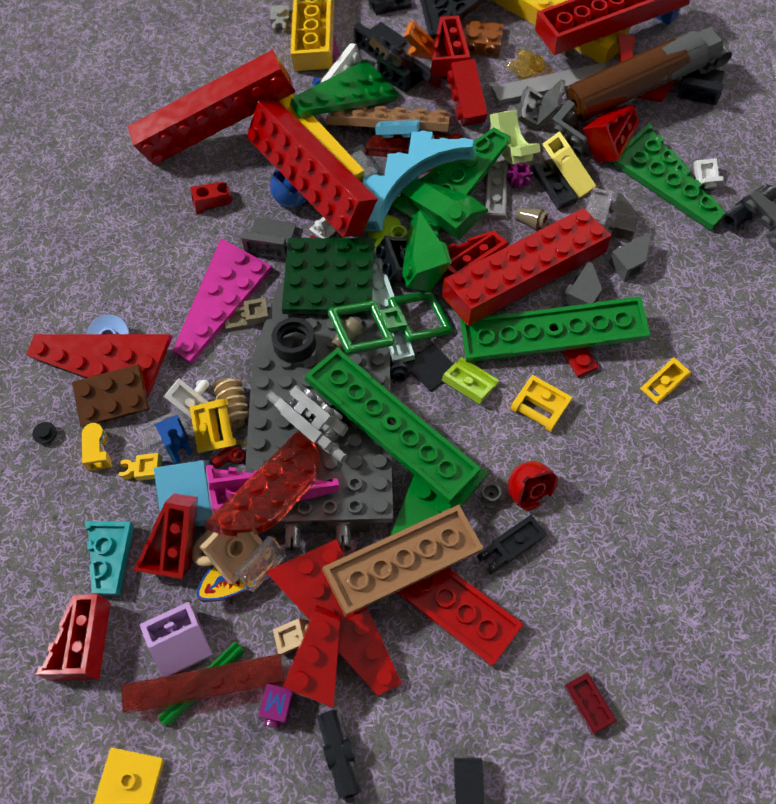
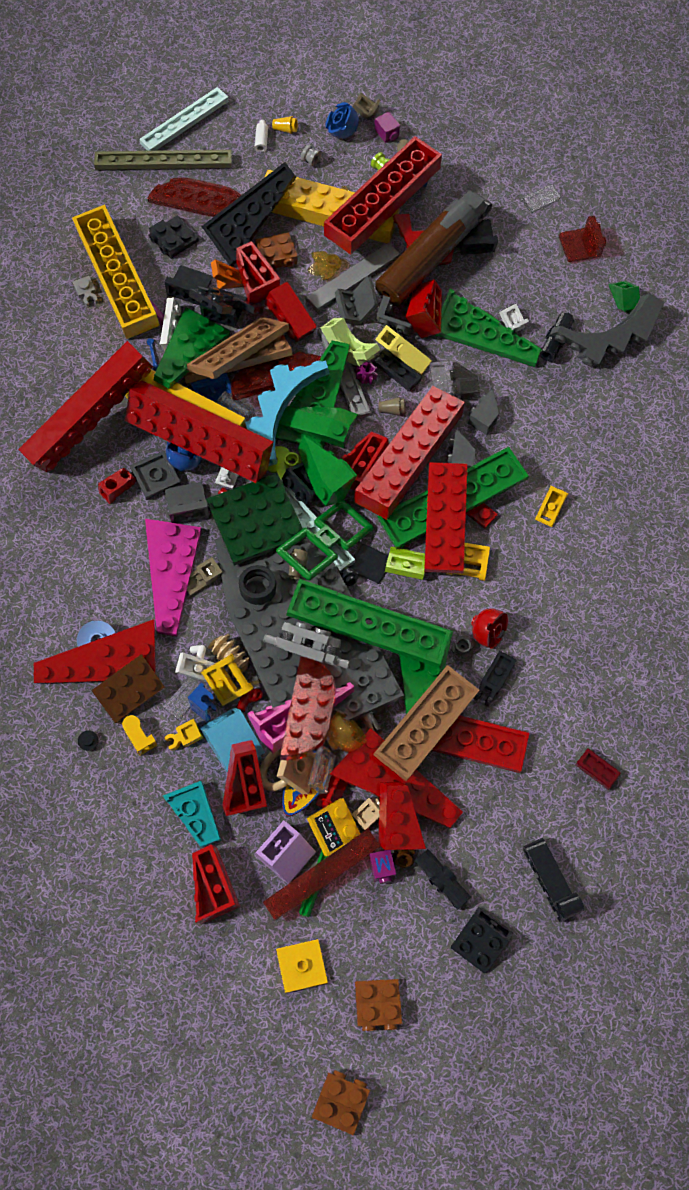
camera: 30 degrees left, 5 degrees up
(243, 634) = (333, 826): none -> yellow plate
(252, 200) = (155, 475): none -> dark grey plate
(263, 598) = (334, 792): none -> red hinge
(301, 532) = (345, 733): none -> clear yellow cylinder
(304, 711) = (404, 861): none -> reddish brown plate
(351, 136) = (212, 388): none -> blue hinge
(389, 128) = (246, 370): medium azure plate -> none
(393, 105) = (237, 347): none -> medium nougat plate
(534, 347) = (446, 518): none -> red plate

